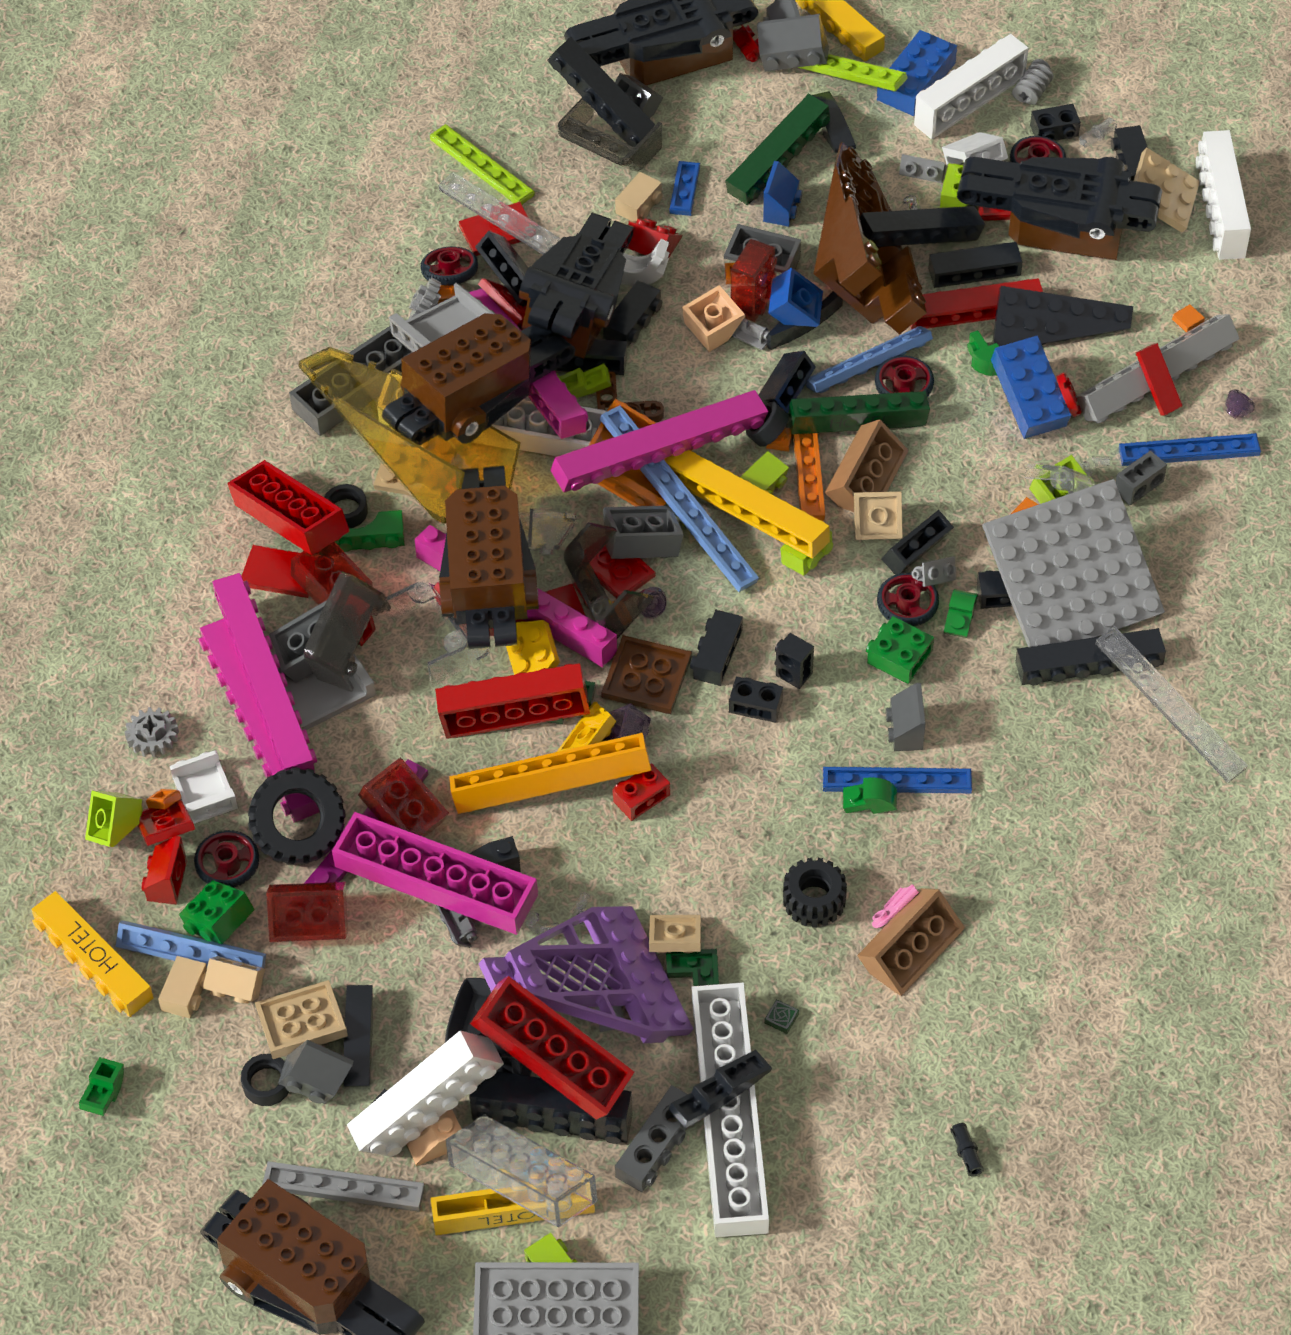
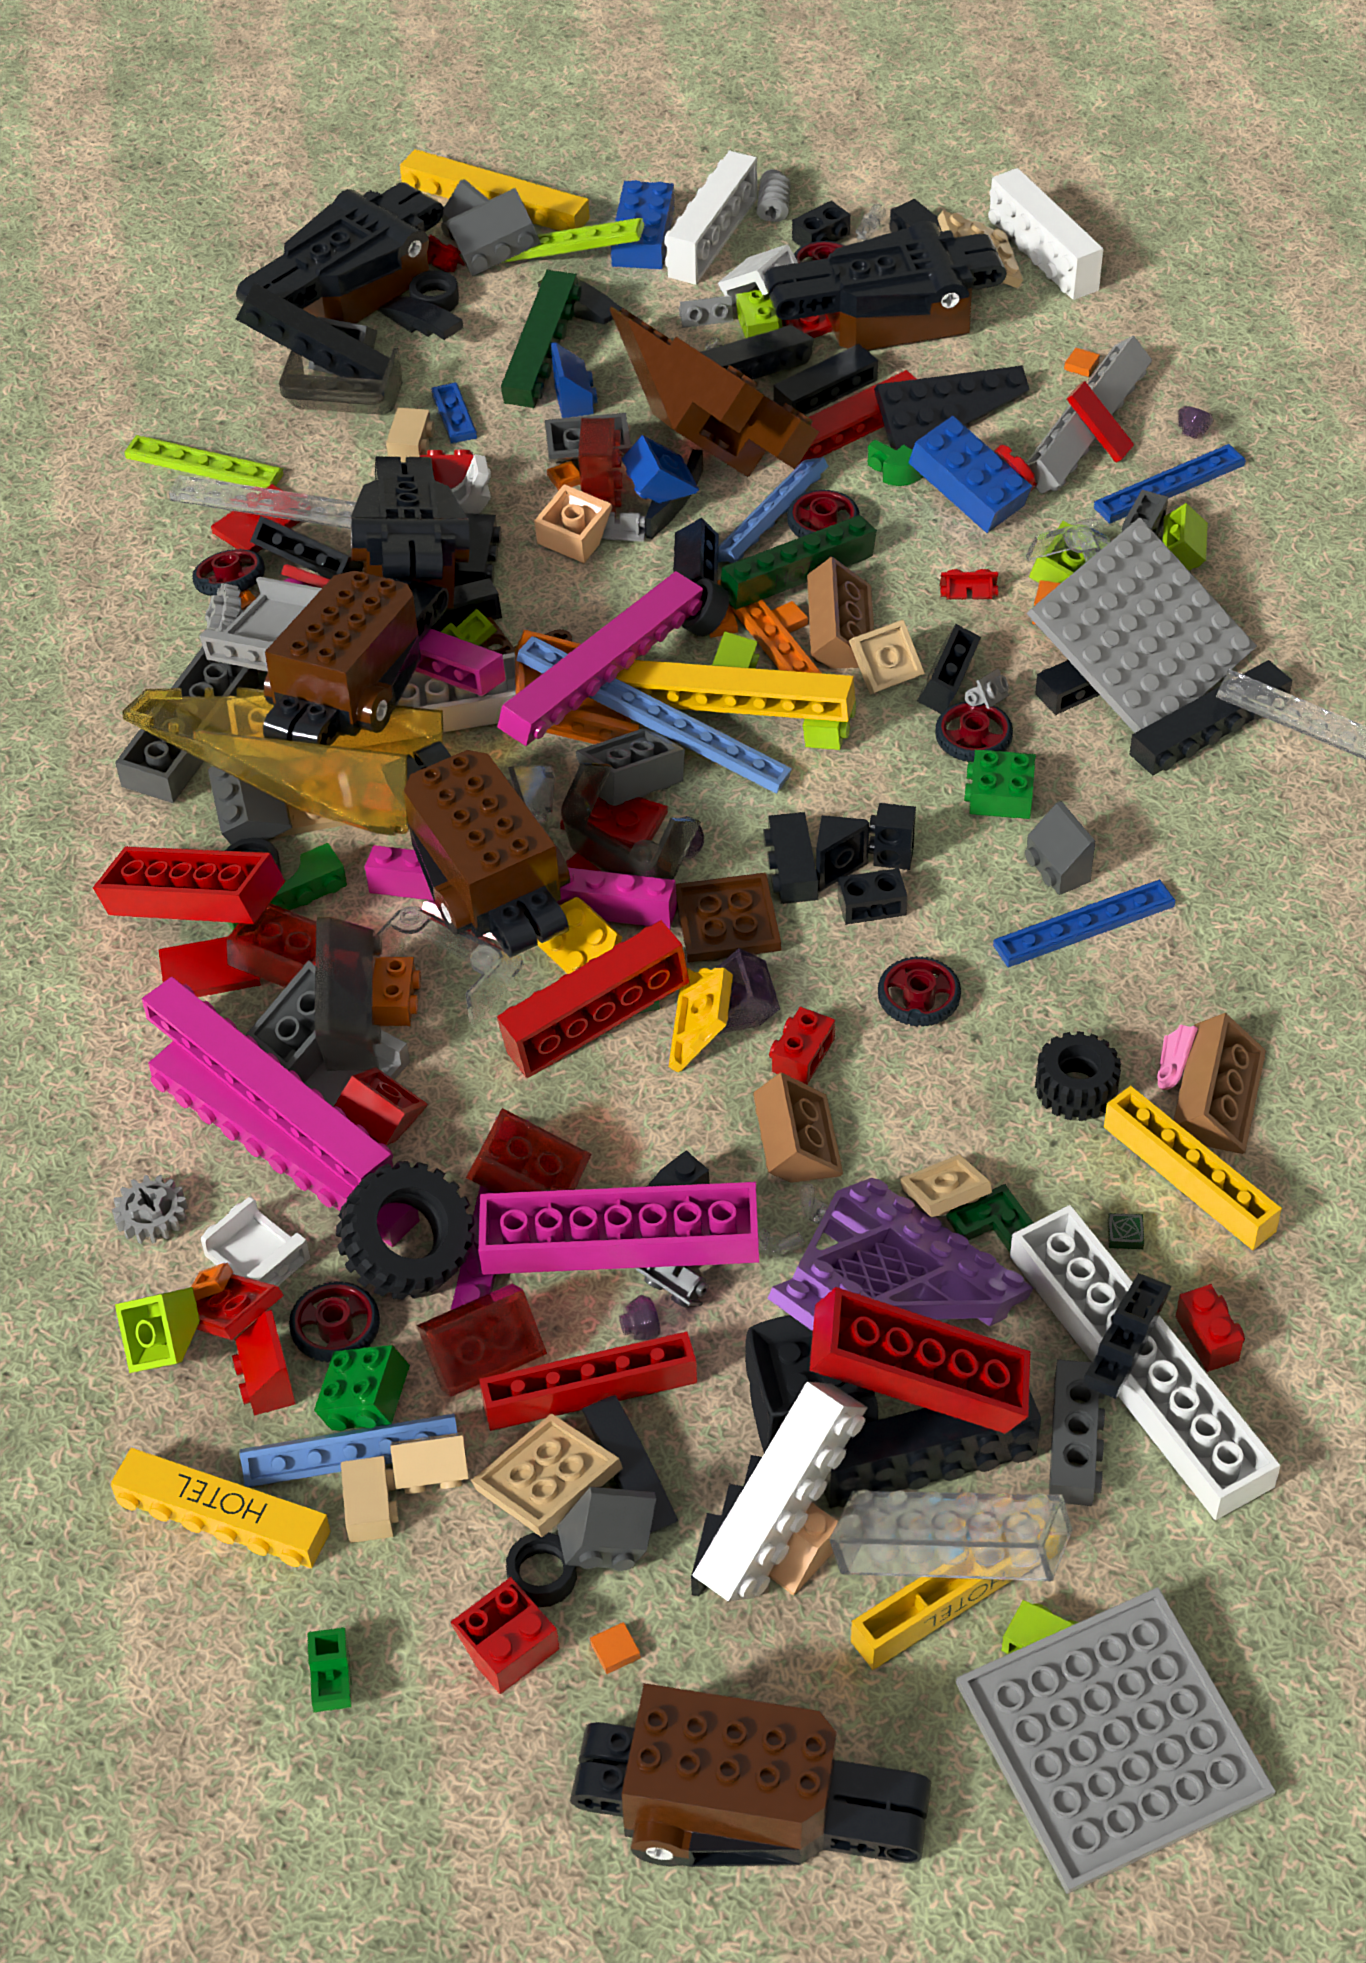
camera: 25 degrees left, 5 degrees down
(219, 1112) = (506, 1635): none -> red slope
(284, 1149) = (615, 1648): none -> orange tile
(333, 719) = (380, 1105): none -> red slope
(346, 1186) = (723, 1658): light grey plate -> none
(359, 465) = (245, 809): none -> dark grey slope
(362, 967) = (588, 1378): none -> red brick
(389, 639) = (394, 991): none -> orange brick
(420, 941) = (640, 1319): none -> clear purple cone
(550, 773) = (688, 1062): light orange brick -> none
(601, 852) = (796, 1130): none -> medium nougat slope
(703, 96) = (421, 316): none -> black slope
(725, 89) = (436, 280): none -> black tyre
(746, 776) = (919, 990): none -> dark red wheel
(748, 655) = (840, 848): none -> black slope
(790, 1107) = (1210, 1327): none -> red brick
(830, 454) = (791, 616): none -> orange tile
(850, 991) = (1192, 1168): none -> yellow brick
(874, 794) = (1072, 947): green brick -> none
(960, 613) = (1041, 724): green brick -> none
(988, 480) = (956, 583): none -> red hinge
(1164, 503) = (1186, 536): none -> lime brick

